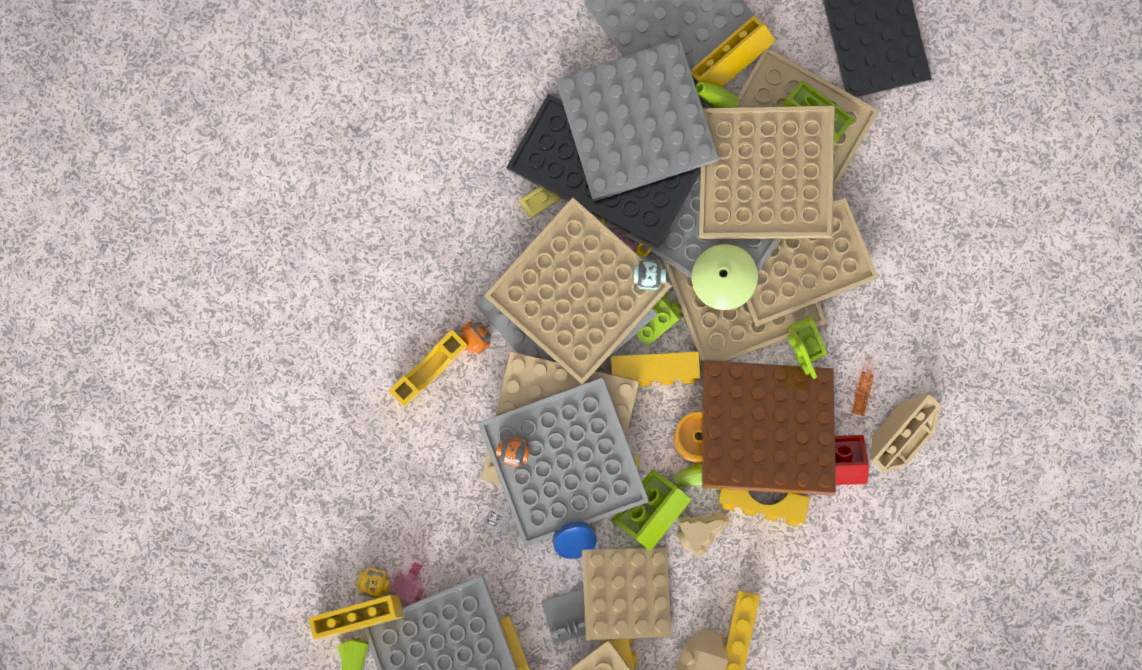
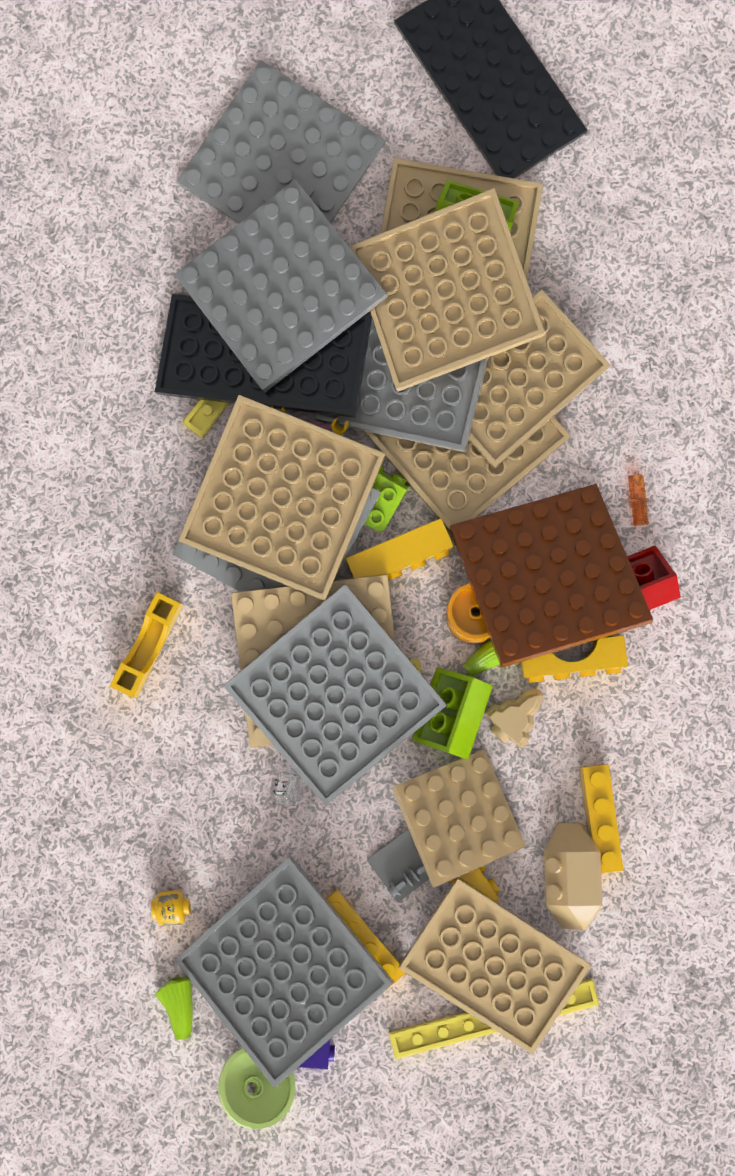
camera: 20 degrees left, 0 degrees up
(356, 617) = (163, 955): yellow brick -> none
(407, 586) = (210, 898): clear pink brick -> none
(476, 337) = (187, 591): orange head -> none
(513, 451) = (274, 704): head -> none
(573, 539) = (378, 777): blue tile -> none
(649, 274) = (356, 449): head -> none
(717, 95) = (358, 228): lime piece -> none
(731, 290) = (445, 440): yellowish green dish -> none
(734, 53) = (361, 180): yellow brick -> none
(806, 343) = (559, 466): lime bracket -> none
(904, 432) = (700, 525): tan wedge -> none

